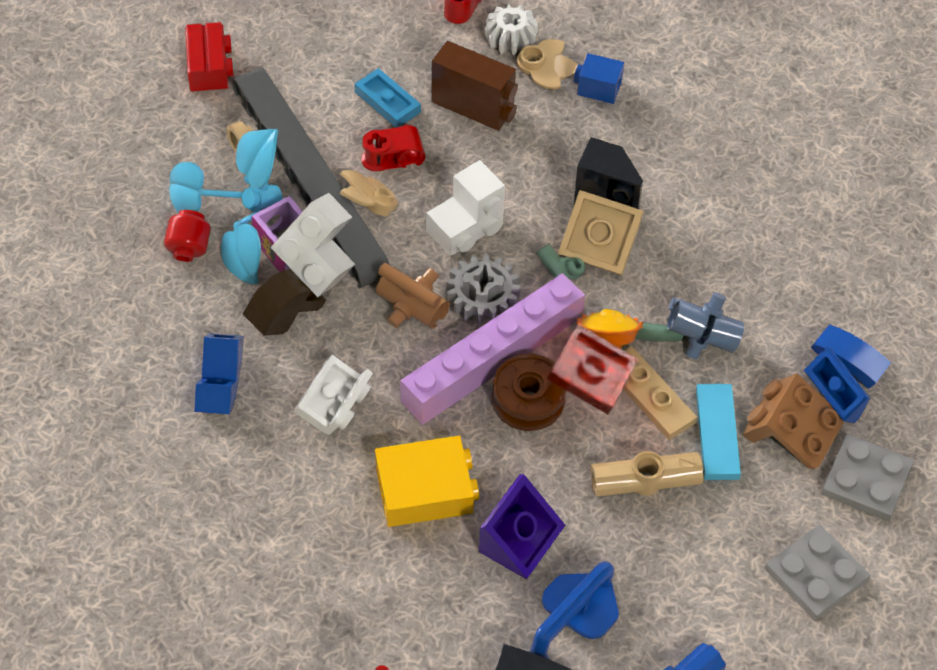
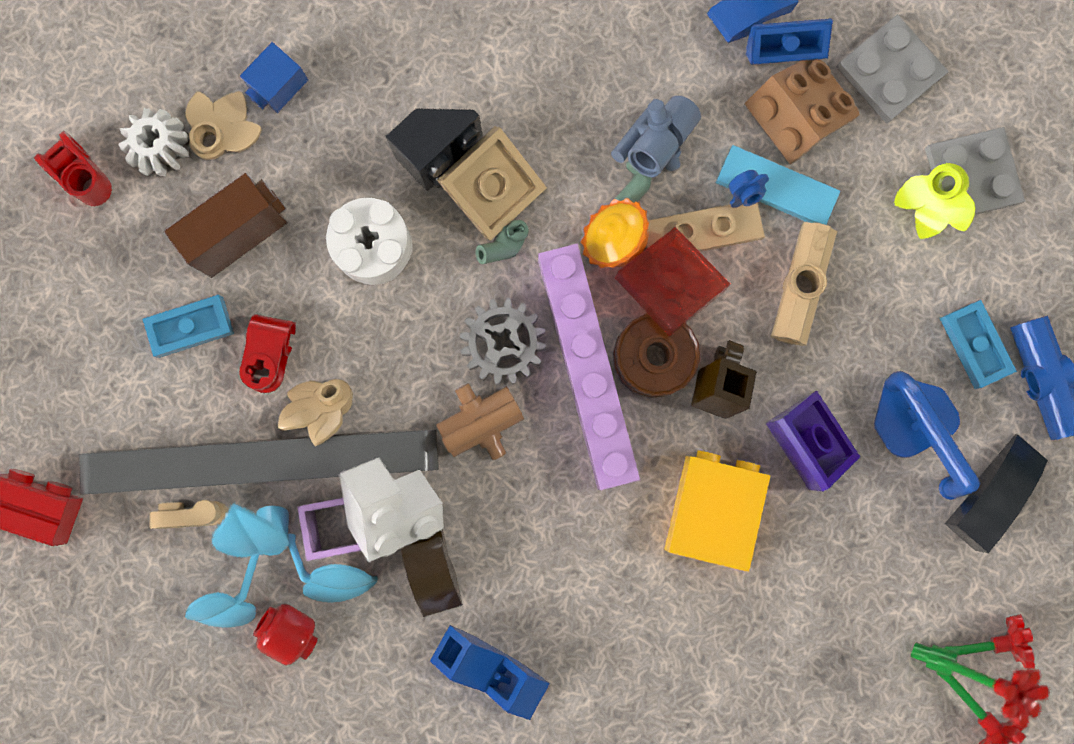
camera: 65 degrees left, 30 degrees up
(332, 396) = (571, 560): white bracket -> none
(470, 213) = (397, 306): white brick -> none
(519, 169) = (349, 232): none -> white brick
(531, 441) = (724, 385): none -> dark brown brick
(671, 625) = (978, 344): none -> dark azure plate
(698, 397) = (747, 188): none -> blue plate
(776, 542) = (934, 205): none -> neon yellow plate

